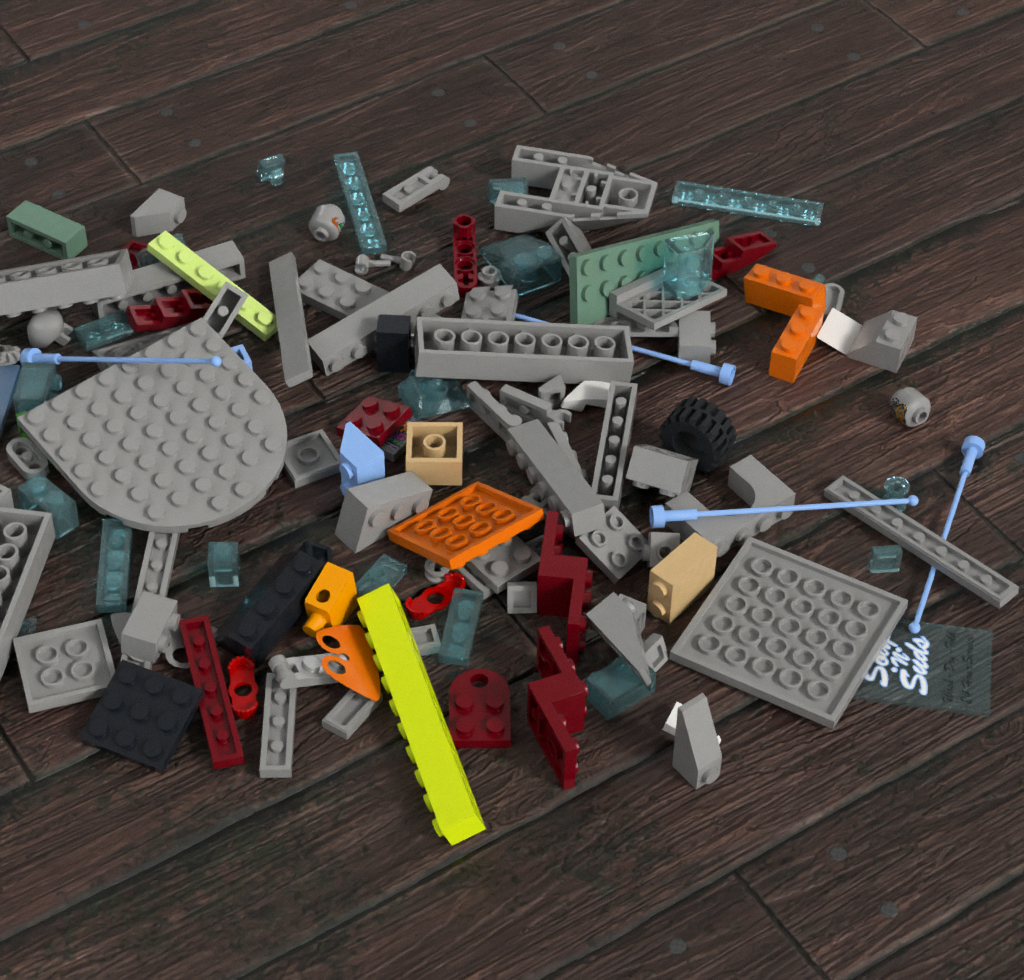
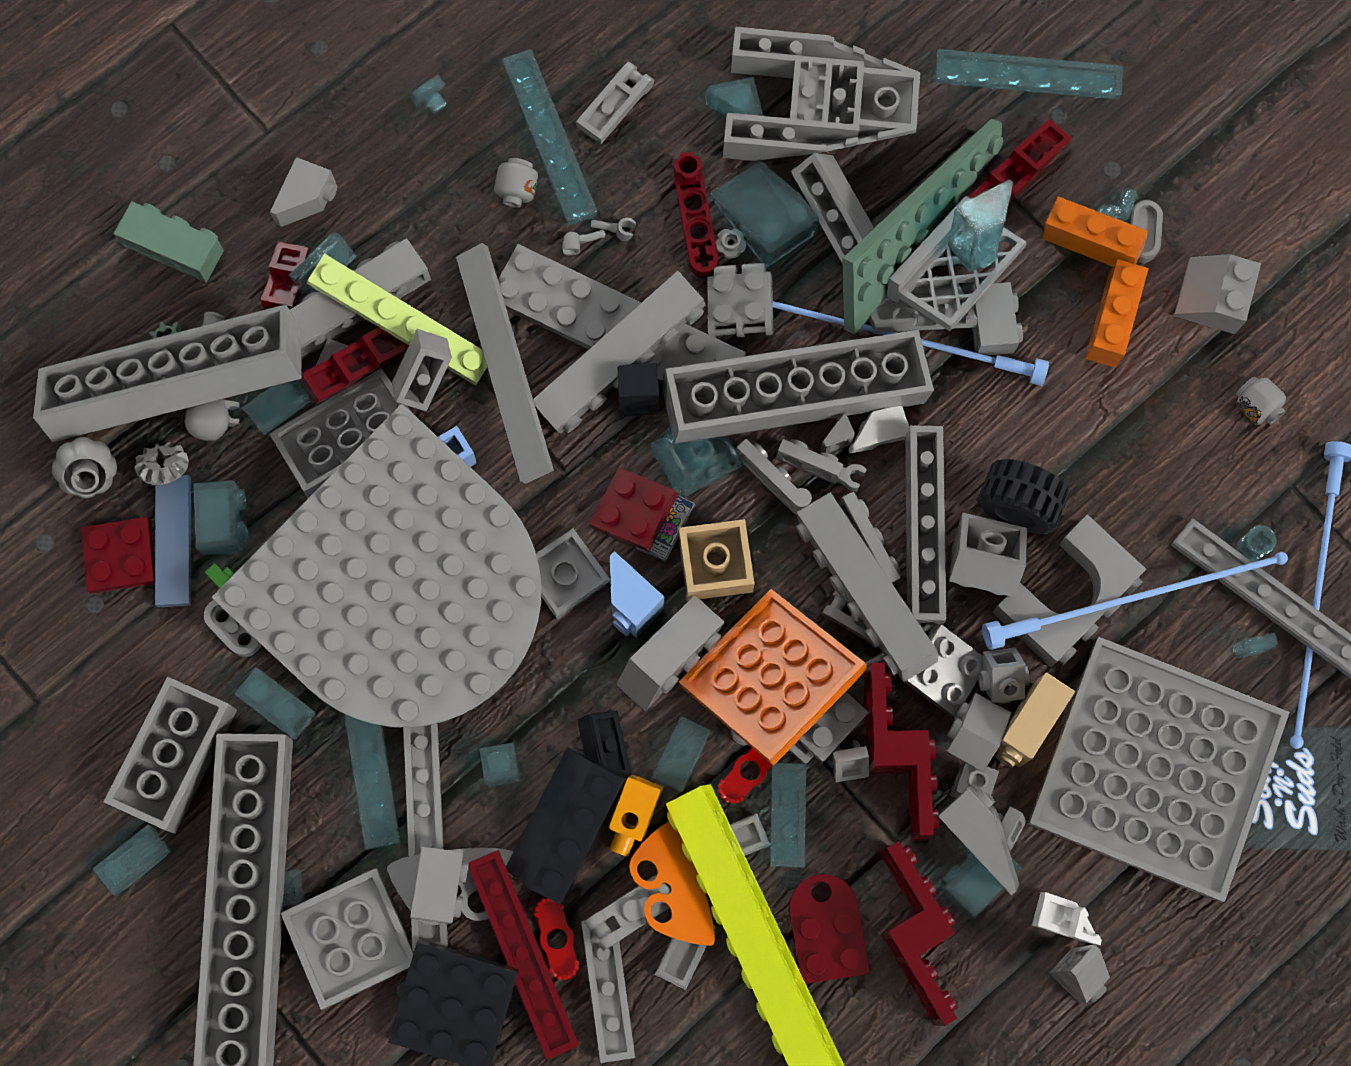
camera: 10 degrees left, 30 degrees up
(36, 356) = (202, 464): light blue piece -> none
(628, 577) = (978, 731): none -> light grey brick
(839, 331) = (1163, 279): white sticker -> none

